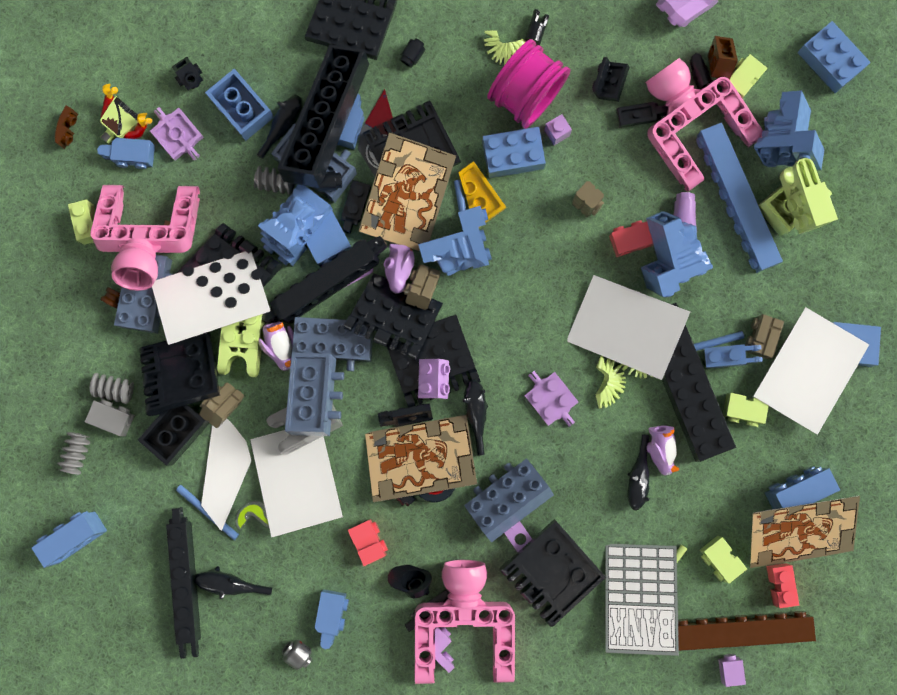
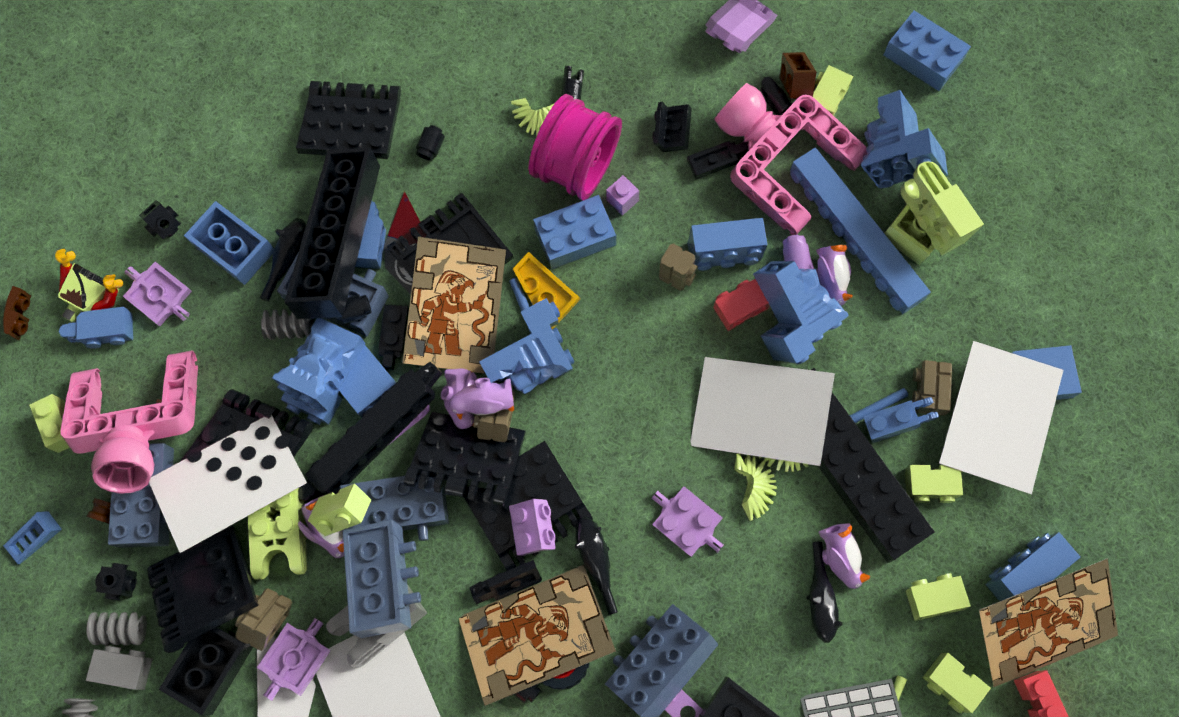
camera: 15 degrees left, 10 degrees down
(67, 299) = (46, 528): none -> medium blue slope
(121, 356) = (116, 581): none -> black brick
(238, 438) = (293, 659): none -> lavender plate
(292, 338) = (339, 510): none -> yellowish green brick
(416, 274) = (483, 398): none -> lavender animal
(632, 188) = (728, 243): none -> medium blue brick
(710, 229) = (834, 272): none -> animal
(725, 495) = (937, 597): none -> yellowish green brick

